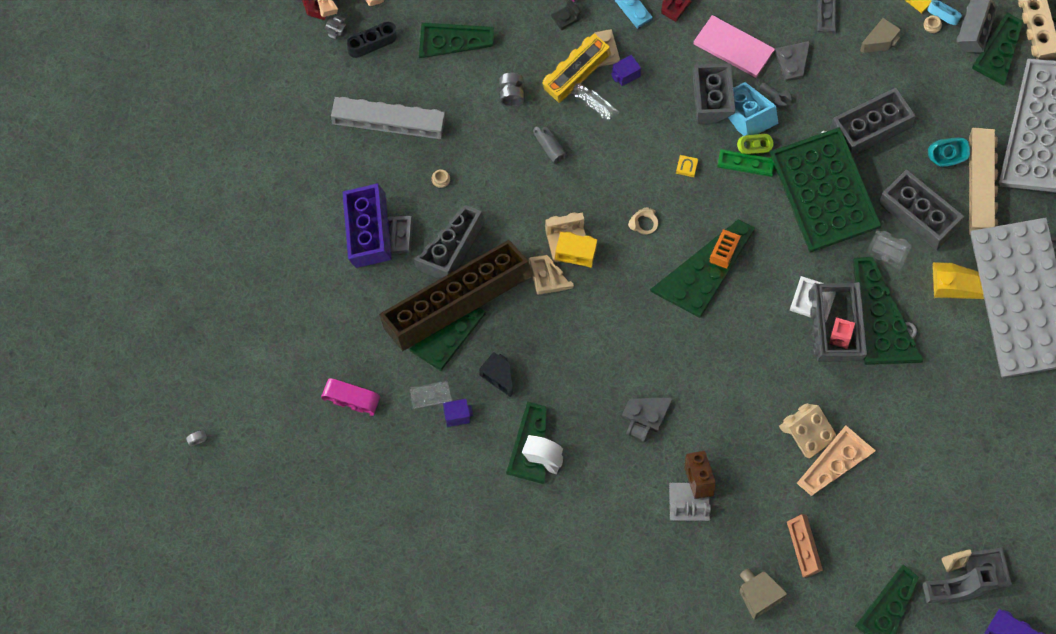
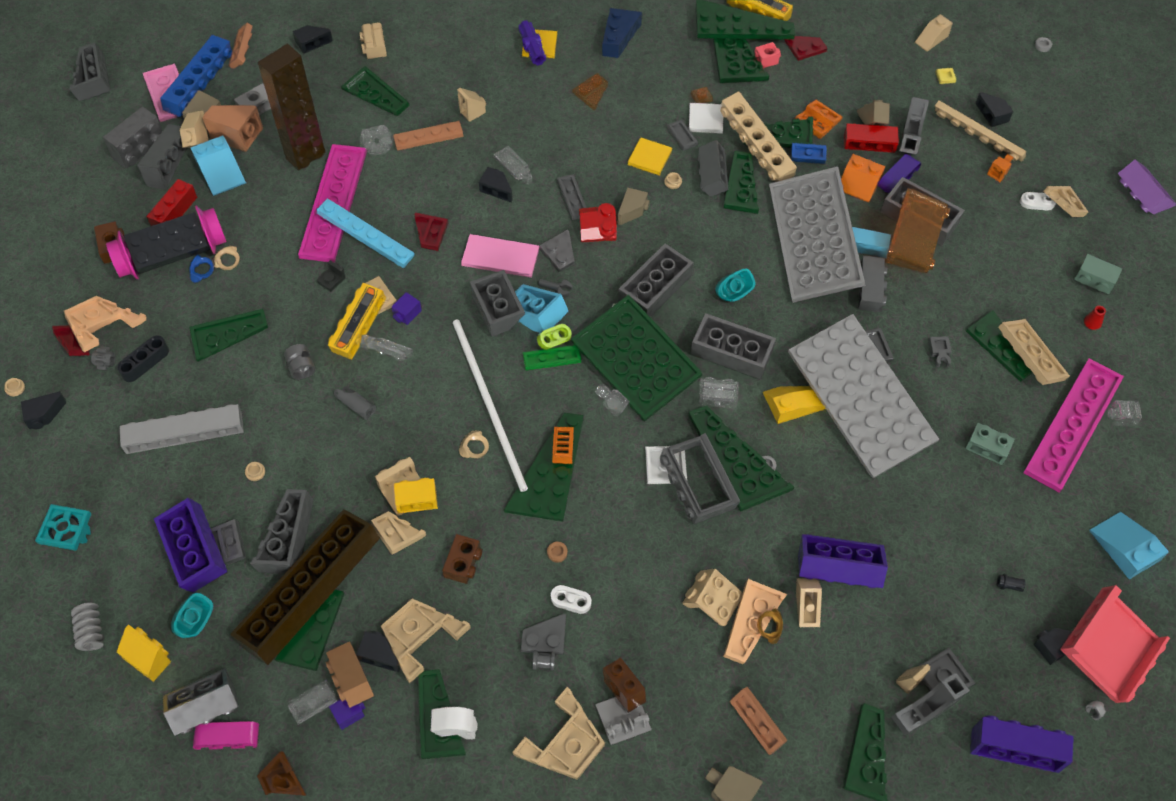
camera: 20 degrees left, 5 degrees down
(250, 28) = (14, 387): none -> tan plate
(260, 266) = (86, 628): none -> light grey piece
(264, 176) = (66, 530): none -> teal piece
(270, 58) = (42, 409): none -> black slope
(302, 304) = (143, 653): none -> yellow slope
(338, 361) = (200, 702): none -> flat silver brick
(350, 287) = (191, 616): none -> teal piece
(385, 446) = (280, 777): none -> reddish brown slope
(468, 382) = (348, 675): none -> medium nougat brick
(535, 363) = (412, 627): none -> tan wing
(594, 318) = (457, 558): none -> reddish brown brick
(635, 510) = (571, 748): none -> tan wing
(671, 188) = (490, 406): none -> white piece
(682, 387) = (572, 597): none -> white plate
(684, 342) = (557, 552): none -> medium nougat tile
(687, 166) = (496, 378): yellow tile -> none
(788, 222) = (614, 400): none -> clear plate
(840, 44) = (598, 223): none -> red slope
(841, 333) = (707, 488): coral brick -> none
(858, 467) = (773, 637): none -> pearl gold piece
(892, 464) = (808, 602): none -> tan slope
(936, 438) = (842, 561): none -> dark purple brick
(944, 12) = (679, 167): medium azure beam -> none
(982, 179) = (776, 302): tan brick -> none

